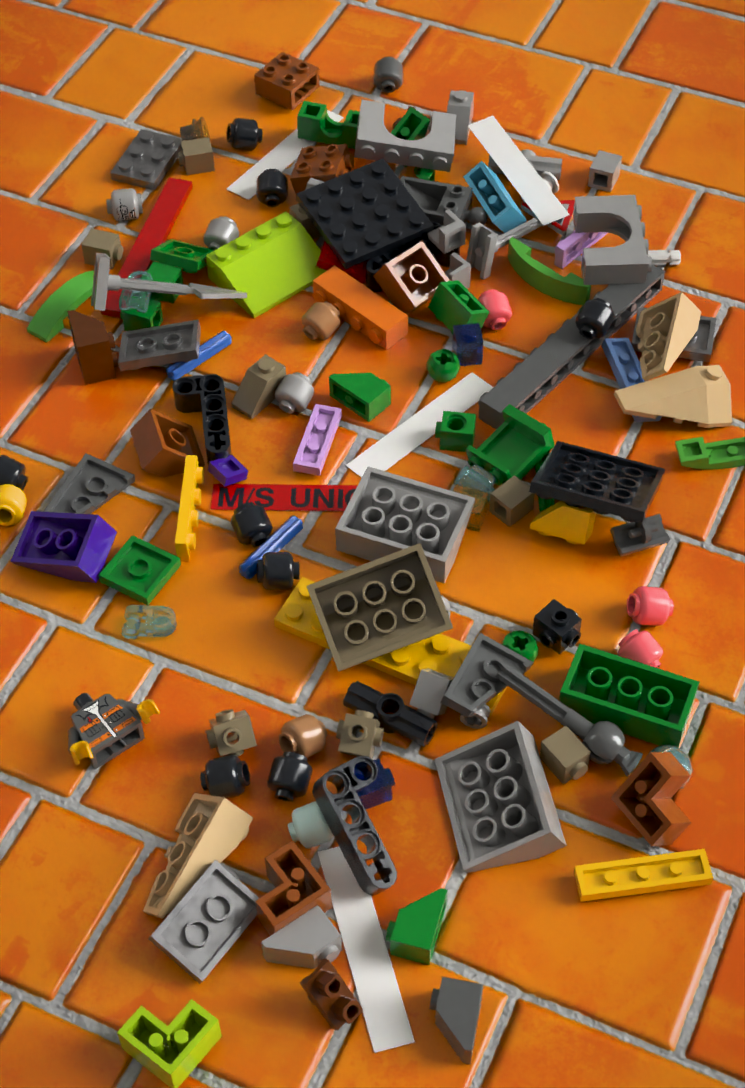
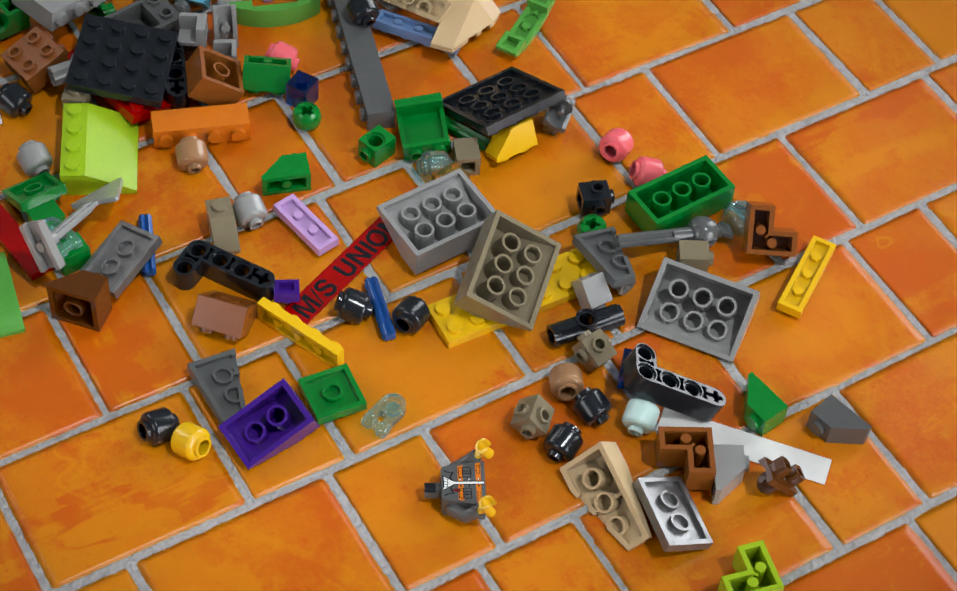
camera: 60 degrees left, 0 degrees up
(420, 426) = (344, 166): white sticker -> none

